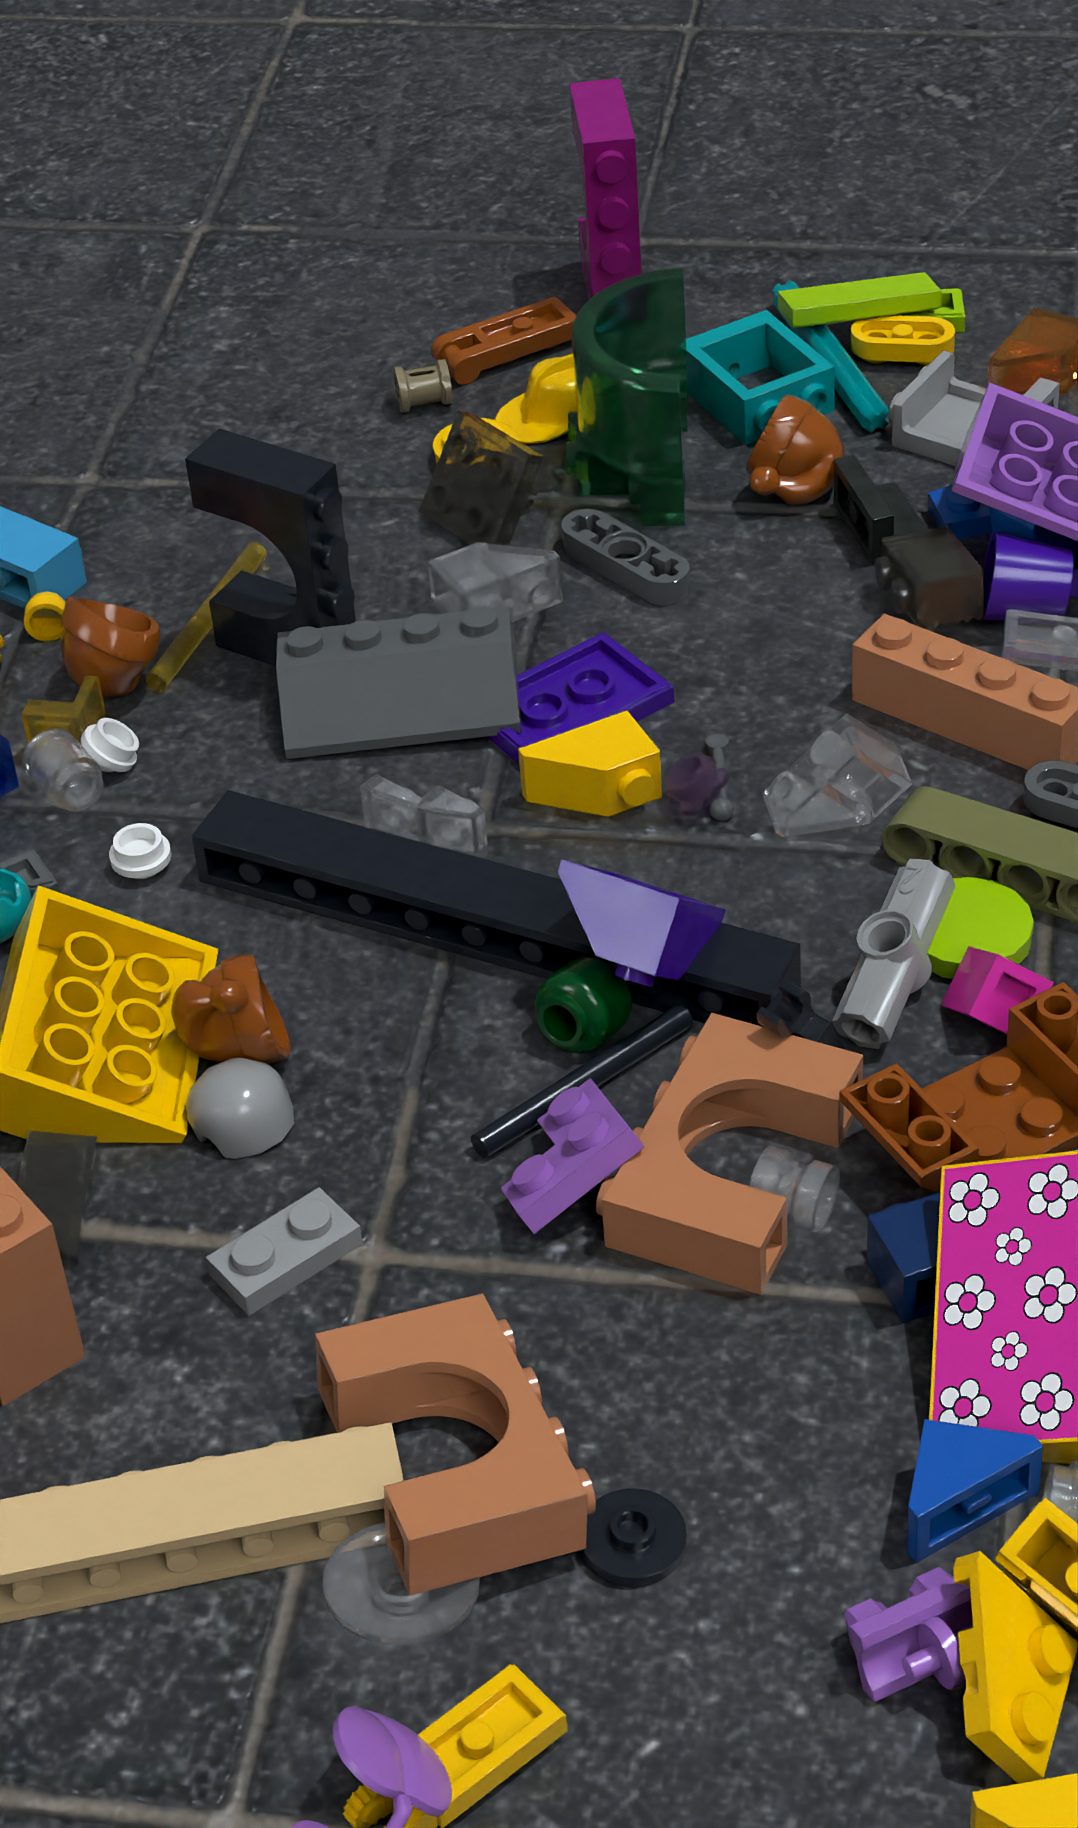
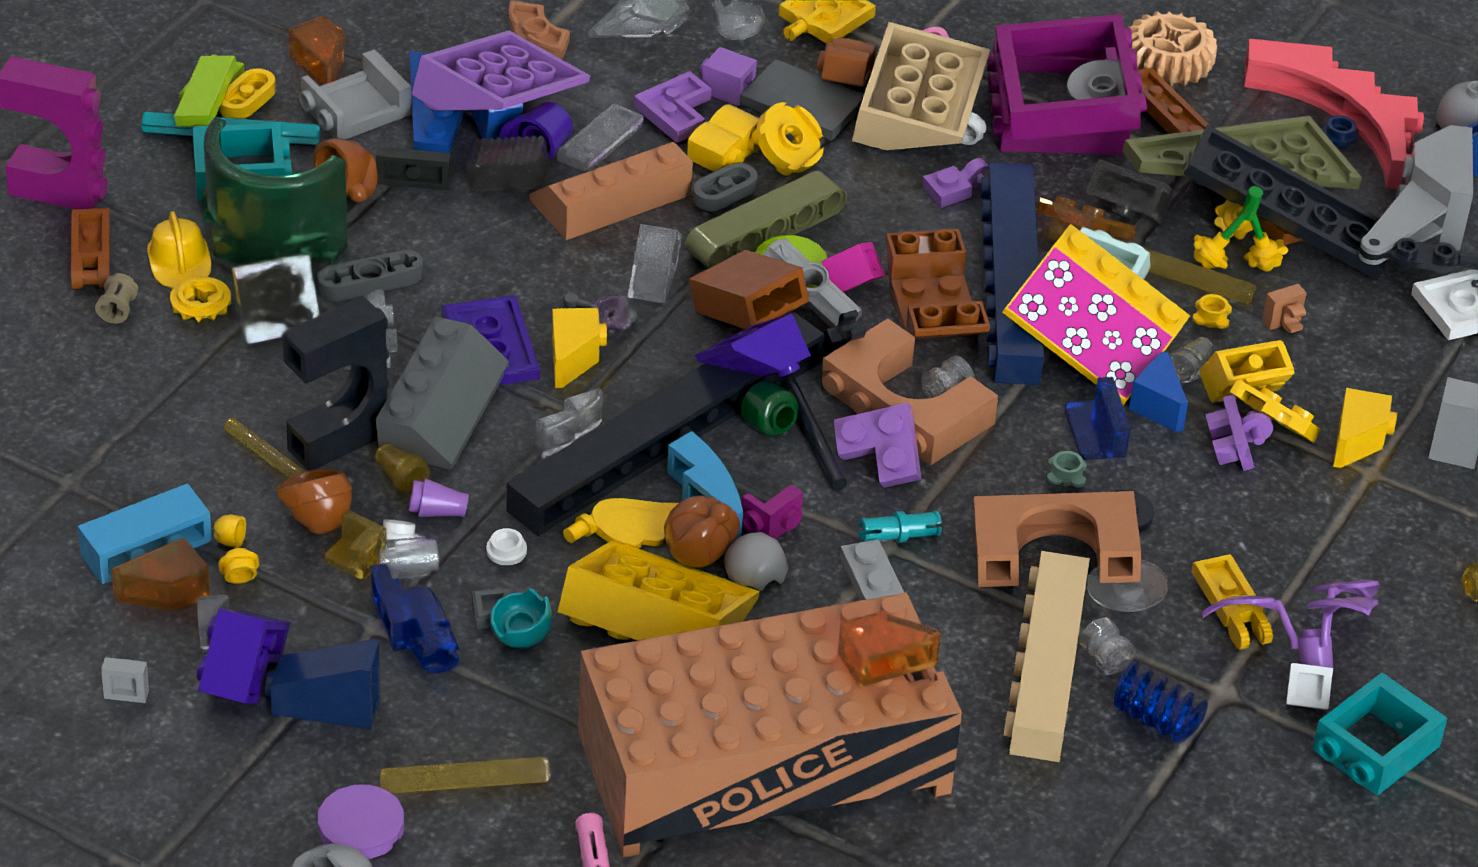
camera: 75 degrees left, 0 degrees up
(108, 1713) = (1157, 705): none -> clear blue piece
(193, 751) = (435, 500): none -> medium lavender cone
(234, 1601) = (1104, 642): none -> clear wheel
(241, 709) = (402, 466): none -> clear yellow cone
(279, 951) = (623, 521): none -> yellow animal
(343, 1089) = (776, 515): none -> magenta bracket
(367, 998) = (702, 473): none -> dark azure slope
(404, 1243) = (900, 526): none -> teal pin
(678, 1401) = (1067, 469): none -> sand green plate
(814, 884) = (749, 289): none -> dark orange brick
(833, 1428) = (1101, 424): none -> clear blue panel

